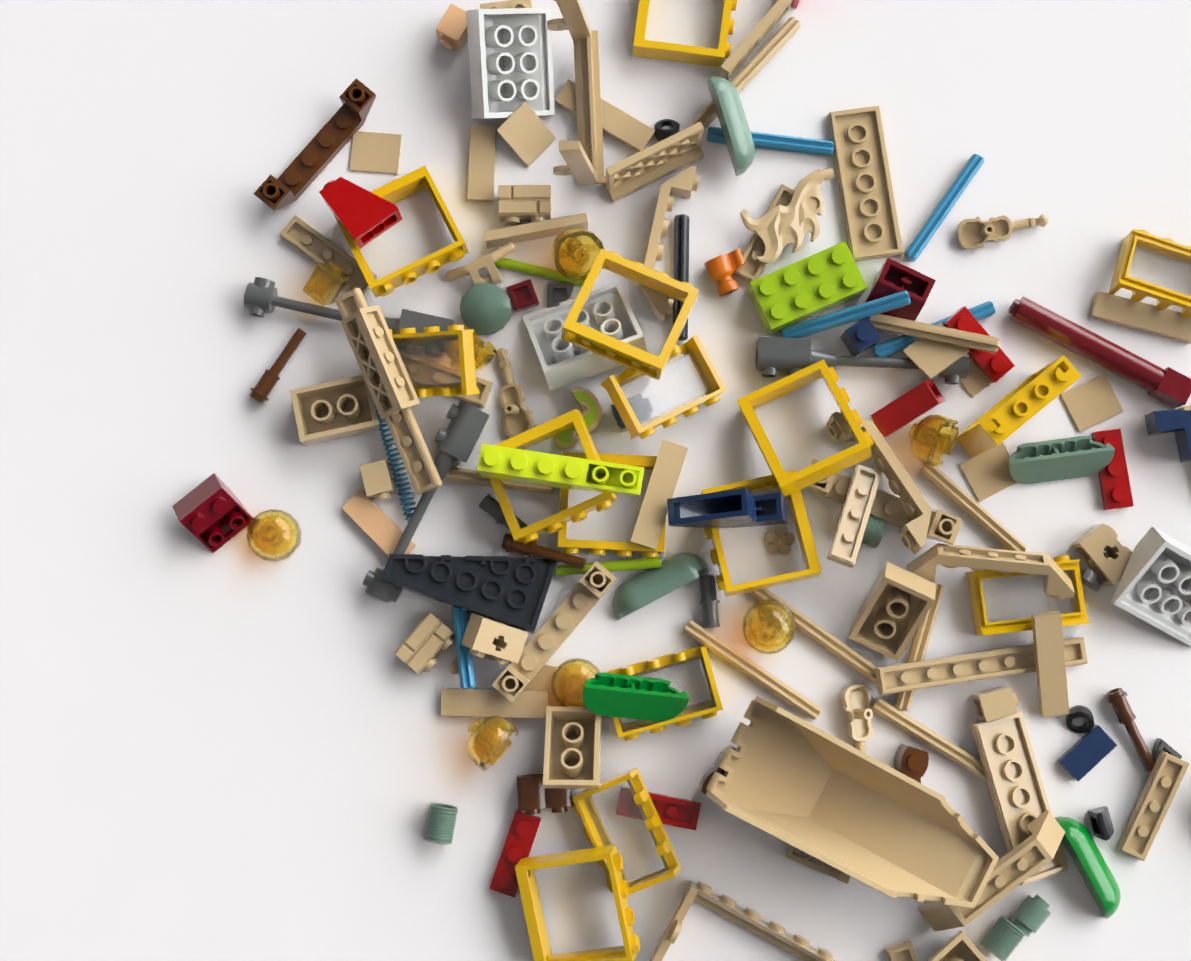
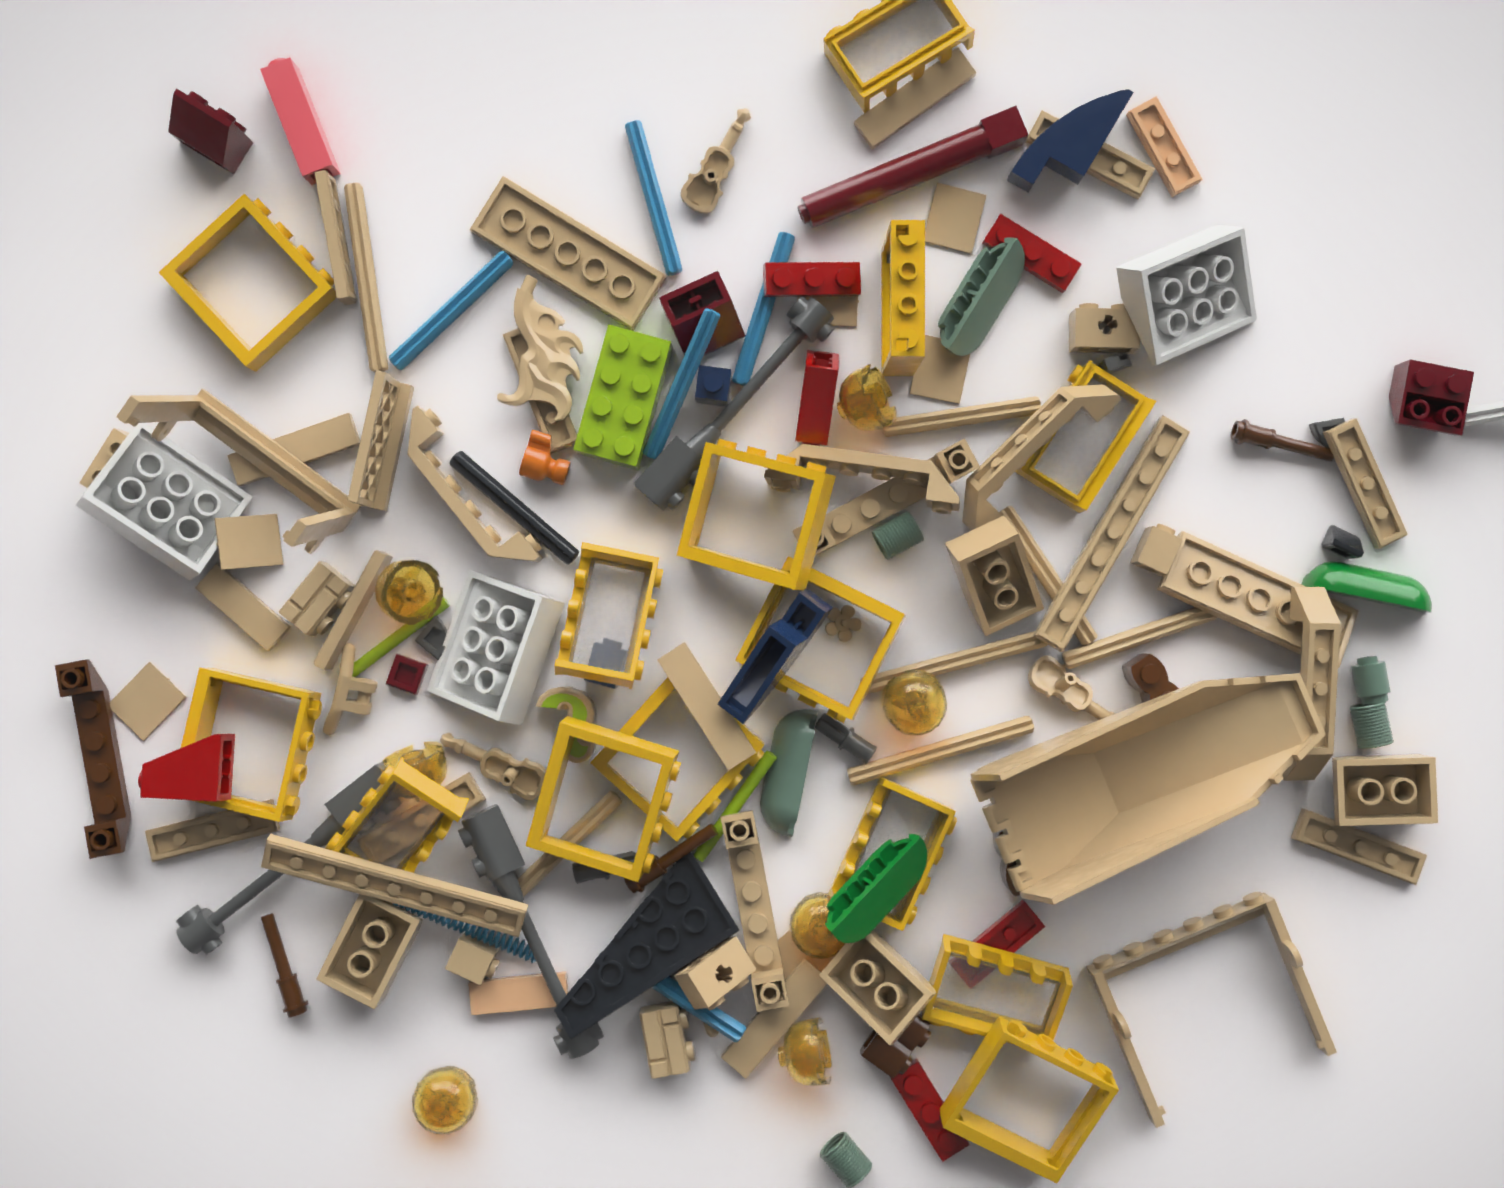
camera: 45 degrees left, 5 degrees up
(212, 513) = (375, 1143): dark red slope -> none
(325, 283) = (238, 857): clear yellow brick -> none
(383, 359) = (359, 869): tan fence -> none
(453, 28) = (81, 528): light nougat brick -> none
(485, 308) = (390, 721): sand green dish -> none
(559, 471) = (606, 789): neon yellow slope -> none
(616, 349) = (531, 638): yellow window -> none
(662, 134) = (360, 408): black piece -> none
(733, 123) = (404, 333): brick -> none
(854, 515) = (877, 537): tan tile -> none
(933, 356) = (785, 326): tan window -> none
(935, 333) = (767, 313): tan axle -> none
(1050, 664) = (1162, 469): tan tile -> none
(1080, 711) = (1227, 477): black piece -> none
(1087, 752) = (1269, 502): dark blue tile -> none

